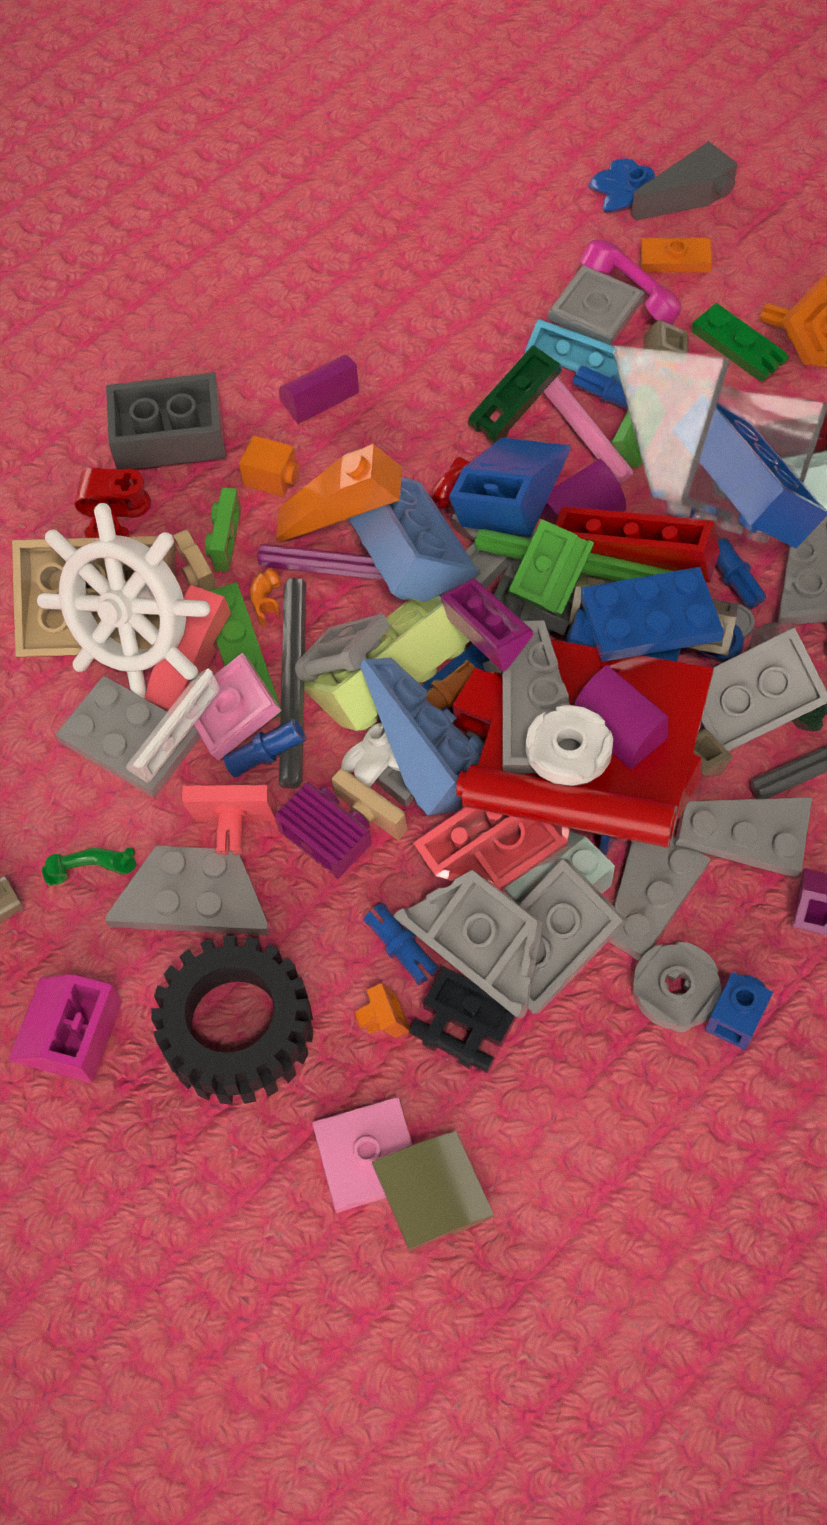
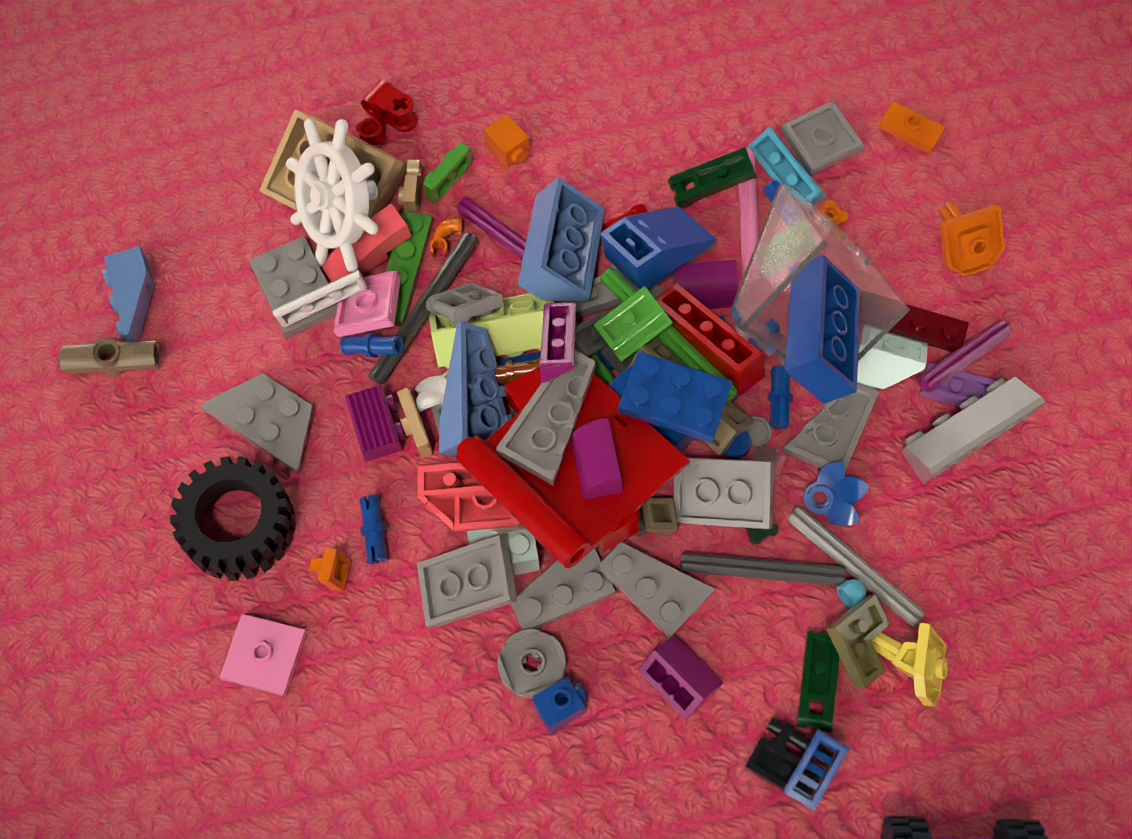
camera: 30 degrees right, 5 degrees up
(56, 865) = (233, 369): green piece -> none
(67, 1026) = (134, 464): dark pink slope -> none
(165, 421) = (456, 72): dark grey brick -> none
(229, 807) = (318, 377): coral tile -> none
(320, 388) = (580, 101): magenta brick -> none
(343, 490) = (532, 190): orange slope -> none
(432, 1190) = (283, 702): olive slope -> none
(469, 1007) = (388, 597): black plate -> none
(481, 936) = (420, 556): light grey wing -> none
(563, 765) = (545, 478): white tile -> none
(606, 256) = (853, 103): dark pink piece -> none
(620, 183) = (911, 49): blue plate -> none
(666, 338) = (855, 194): dark tan slope -> none
(687, 185) = (959, 75): dark grey slope -> none
(739, 342) = (910, 220): green hinge -> none

